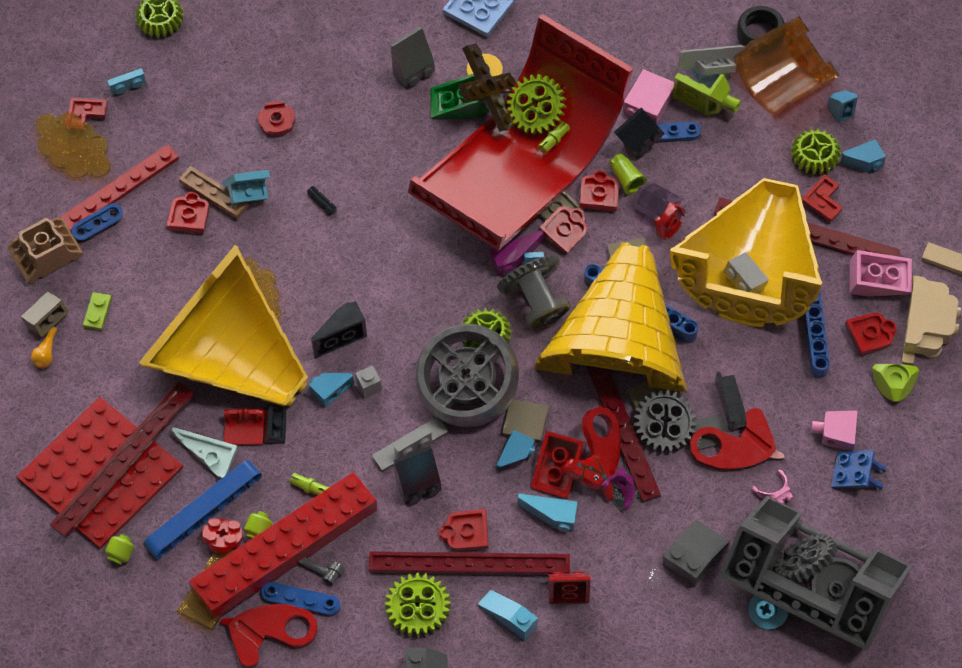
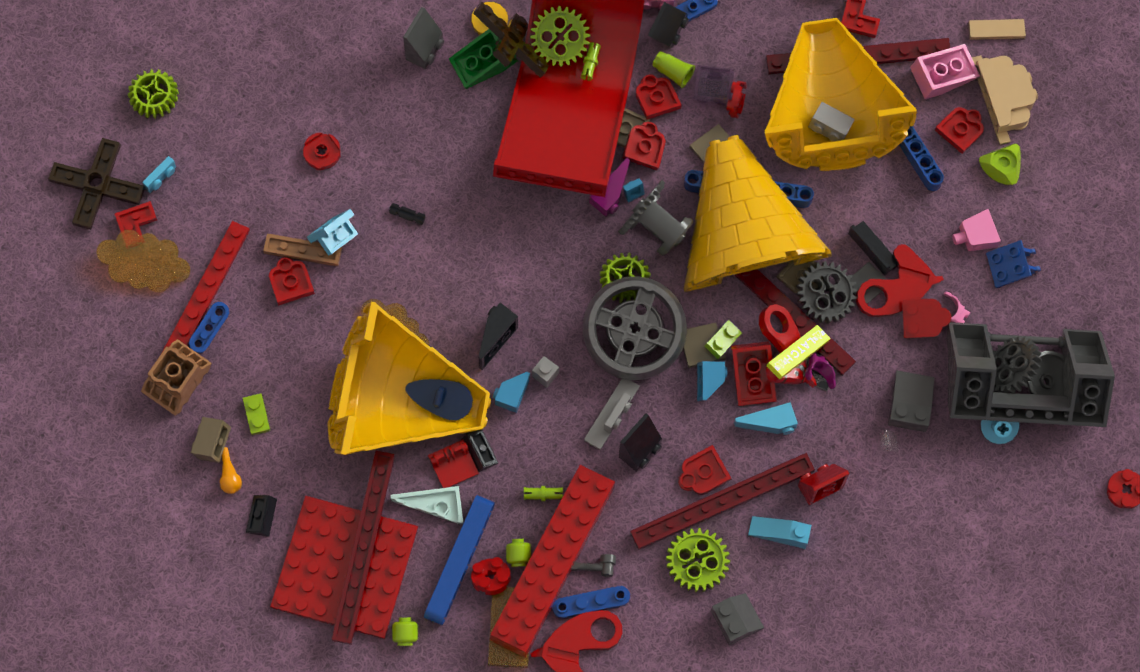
camera: 30 degrees left, 10 degrees up
(54, 397) = (261, 515): none -> black slope
(78, 74) = (93, 195): none -> dark brown piece
(263, 364) = (441, 397): none -> dark blue shield
(546, 421) = (723, 339): none -> lime plate
(606, 459) = (798, 352): none -> neon yellow tile
(744, 482) = (924, 318): none -> red plate

